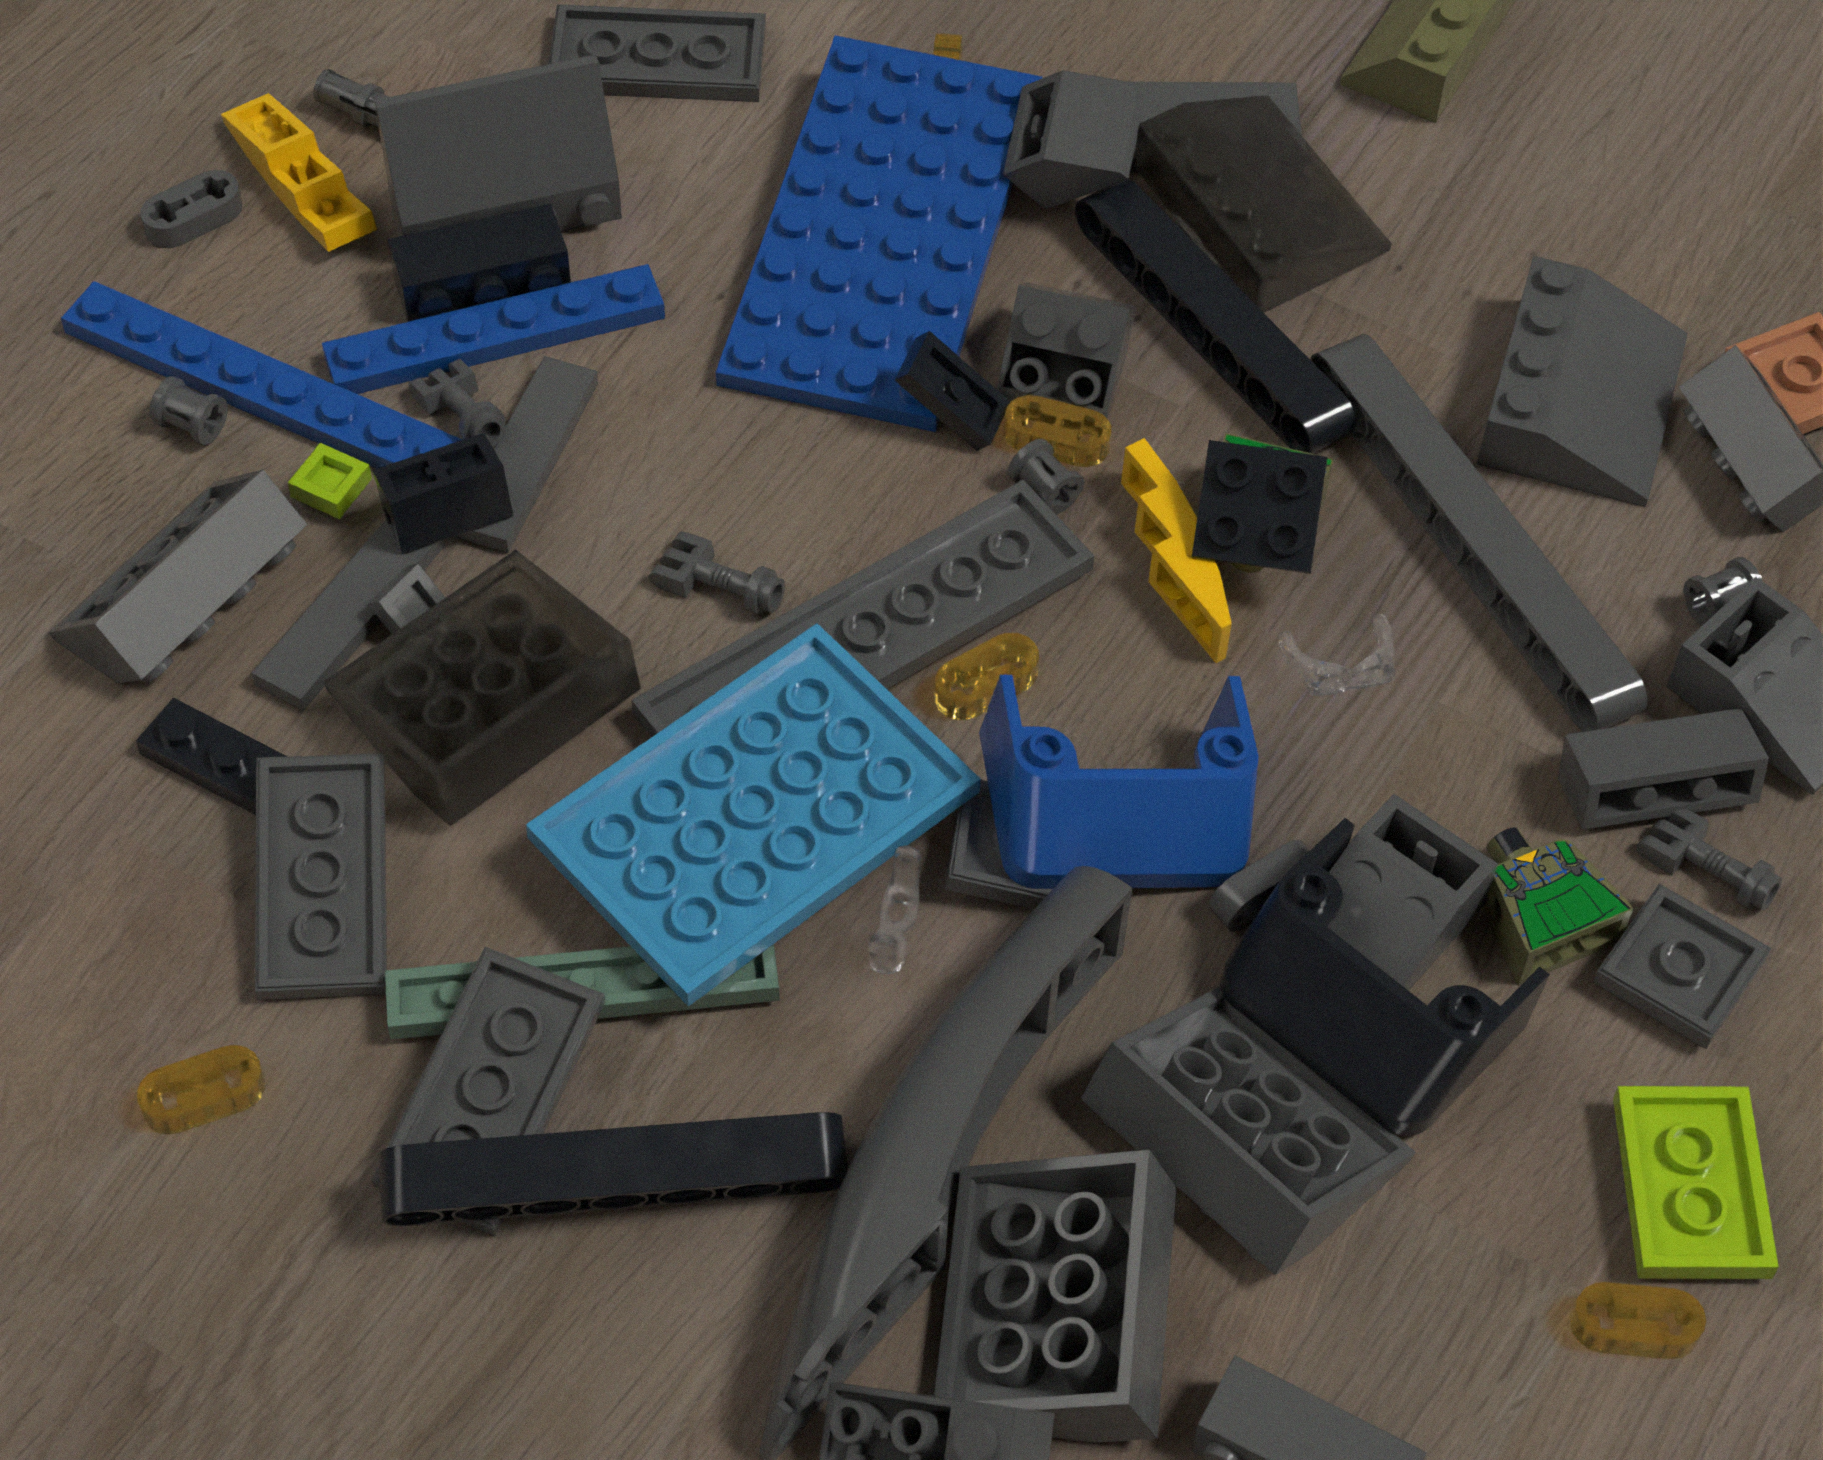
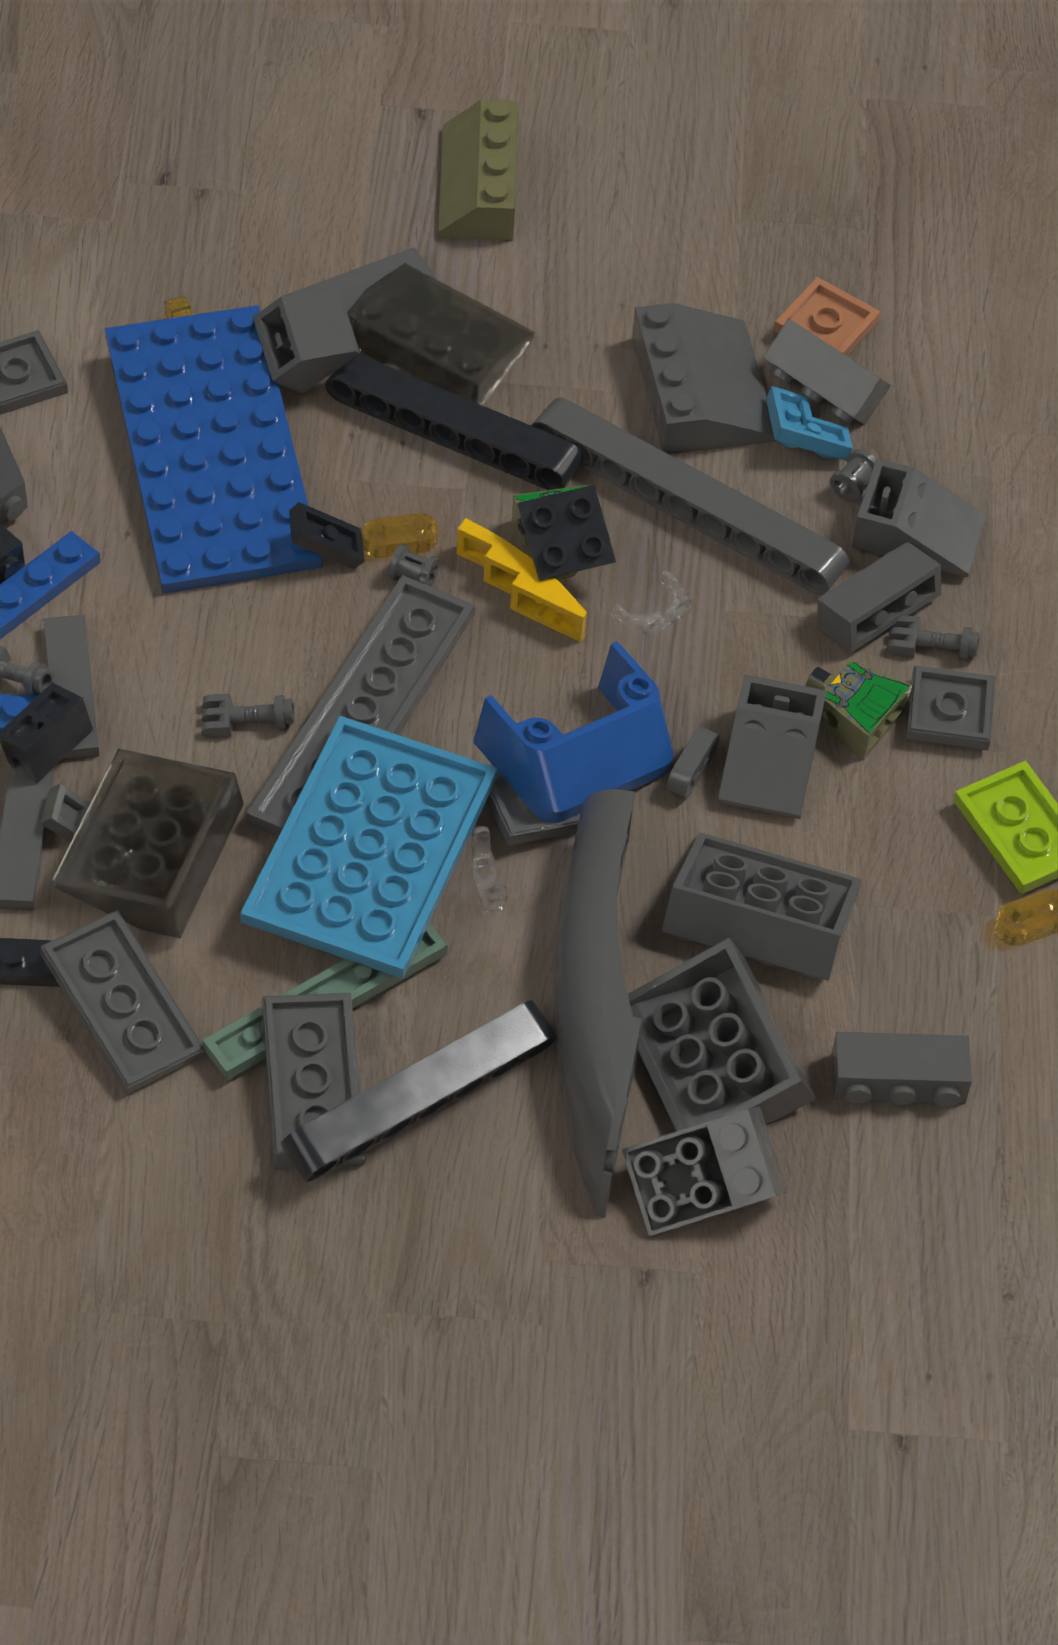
camera: 30 degrees left, 0 degrees up
(201, 1089) = (125, 1155): clear yellow beam -> none
(981, 671) = (457, 711): clear yellow beam -> none
(1065, 347) = (376, 479): dark grey slope -> none
(1351, 1017) = (785, 813): black windscreen -> none
(1675, 496) = (796, 427): none -> dark azure plate

